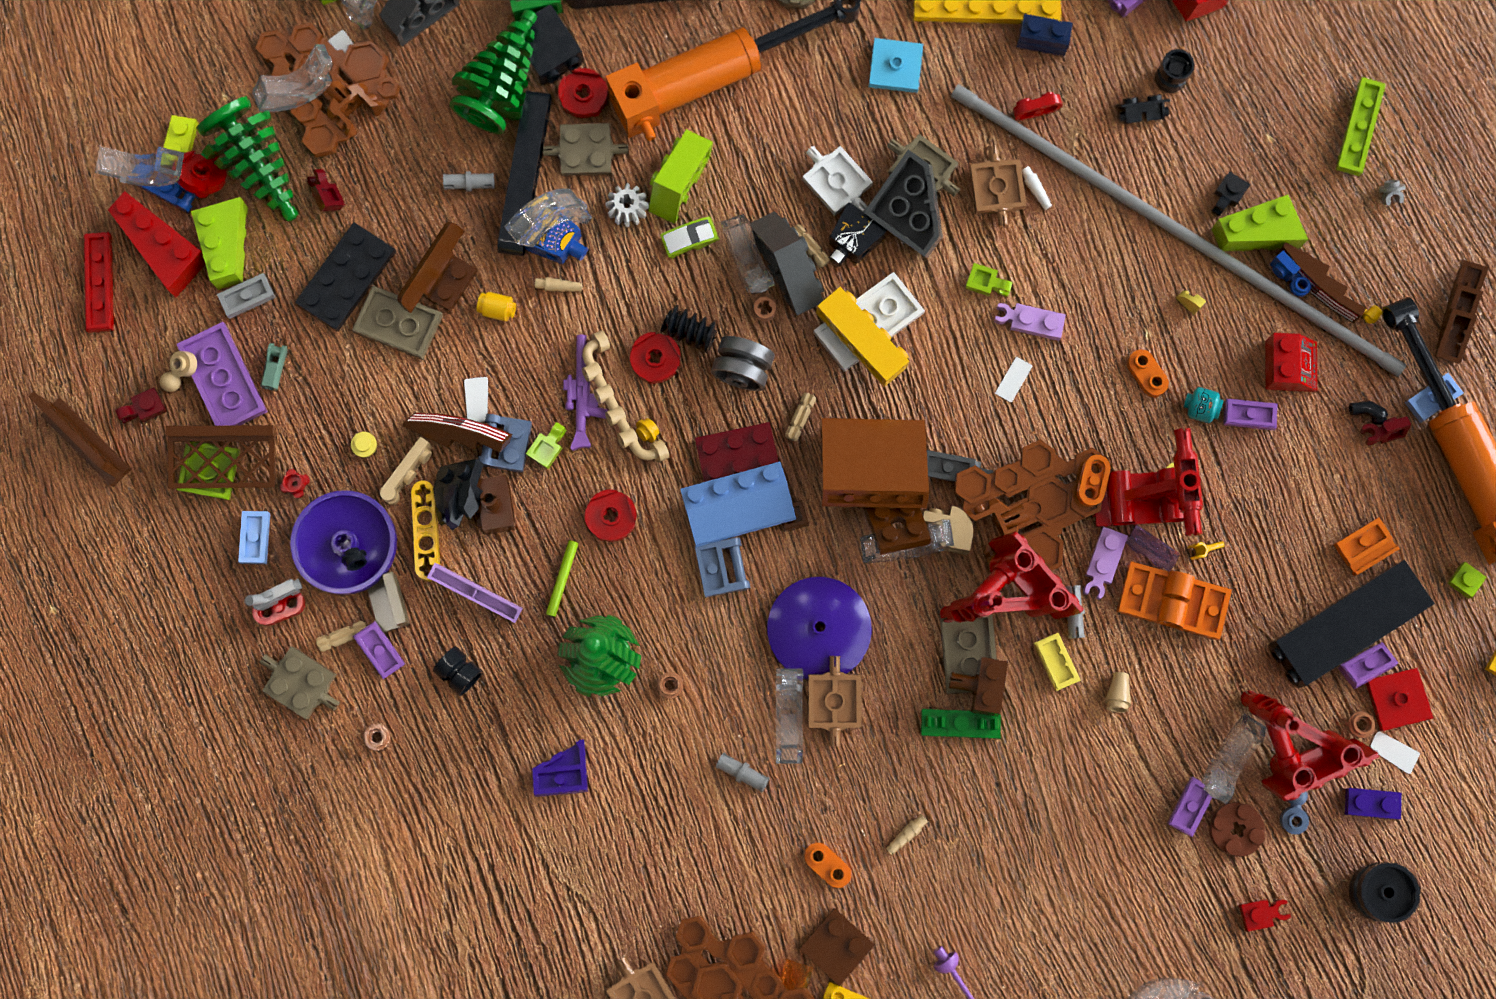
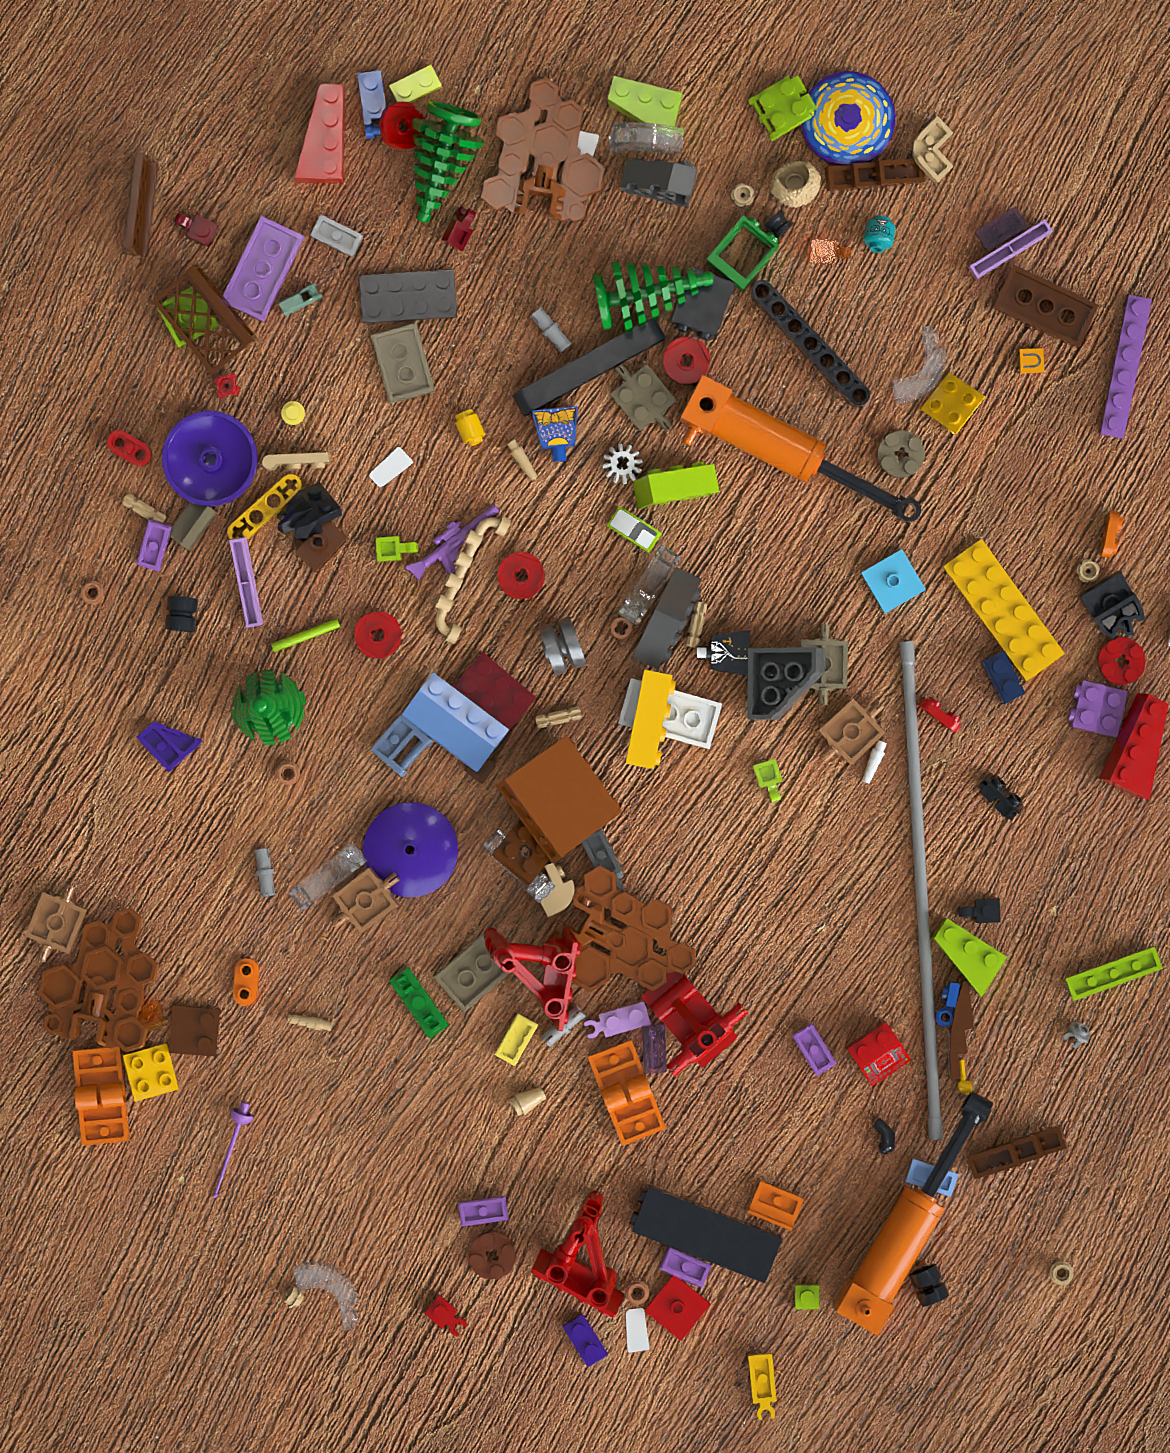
camera: 55 degrees right, 10 degrees up
(98, 282) = (264, 116): red tile -> none
(152, 169) = (369, 82): clear arch -> none
(181, 365) = (231, 233): tan plate -> none
(222, 240) = (363, 184): lime wedge -> none
(254, 537) = (165, 389): light blue plate -> none
(272, 596) = (134, 440): light grey piece -> none
(295, 88) = (520, 144): clear arch -> none
(299, 682) = (88, 506): dark tan plate -> none
(354, 559) = (202, 478): black plate -> none
(439, 274) = (462, 368): reddish brown plate -> none
(450, 429) = (351, 468): reddish brown slope -> none
(514, 454) = (376, 522): sand blue plate -> none
(544, 213) = (564, 414): clear arch -> none
(647, 430) = (461, 612): yellow plate -> none
(689, 328) = (562, 585): black piece -> none
(837, 180) = (763, 607): white plate -> none
(986, 686) = (456, 1000): reddish brown brick -> none
(1013, 379) = (709, 853): white sticker -> none
(1032, 320) = (765, 835): lavender plate -> none
(1093, 481) = (668, 969): orange plate -> none
(1145, 373) = (789, 950): orange plate -> none
(1174, 71) = (1048, 799): black wheel -> none
(1192, 303) = (870, 946): light yellow tile -> none
(1202, 549) = (682, 1086): yellow hand -> none
(1203, 405) = (793, 1009): teal head -> none
(1231, 757) = (537, 1215): clear arch -> none
(1293, 811) = (536, 1287): sand blue plate -> none
(1390, 430) = (880, 1162): dark red plate -> none
(1394, 880) = (509, 1393): black wheel -> none

